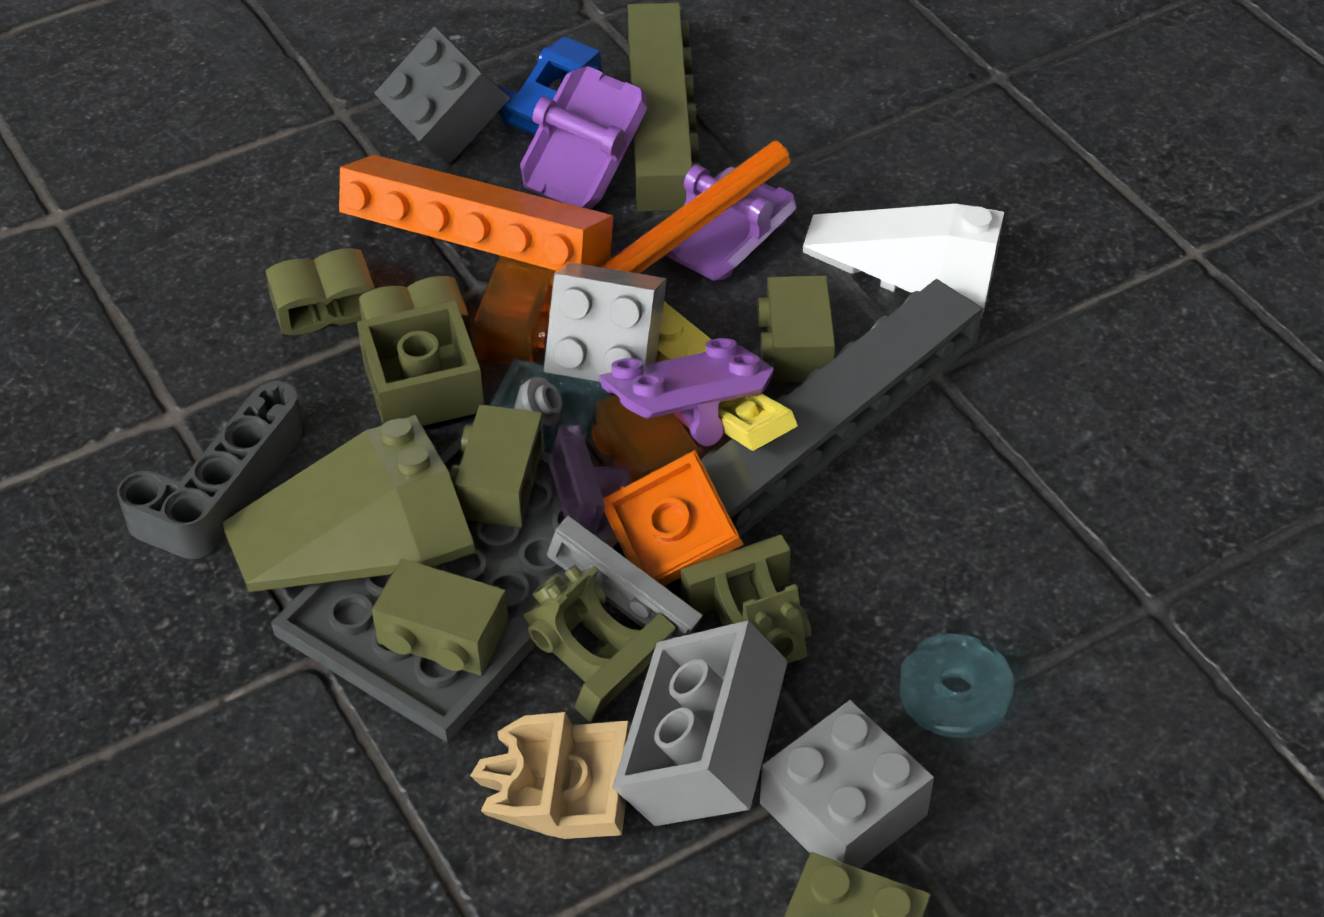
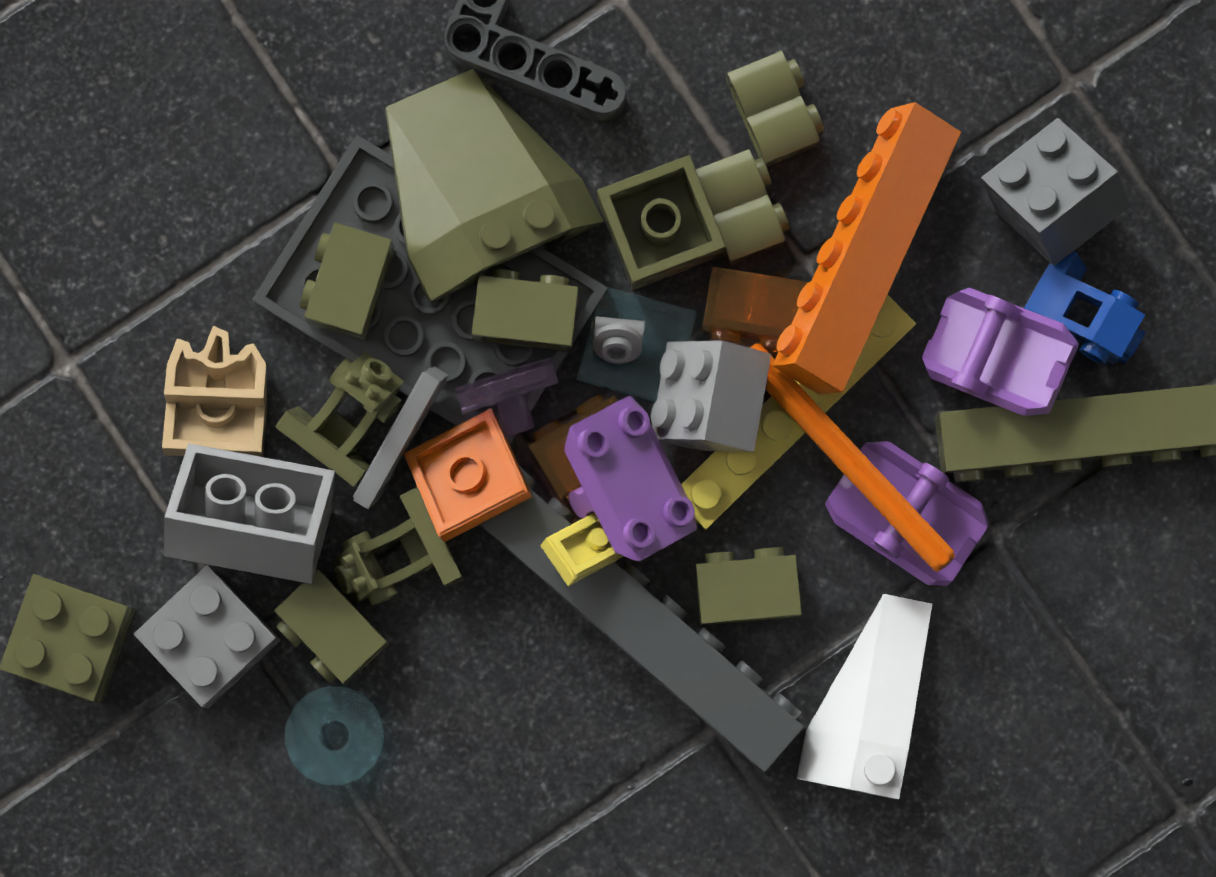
camera: 85 degrees right, 35 degrees up
(838, 664) = (330, 628): none -> olive brick

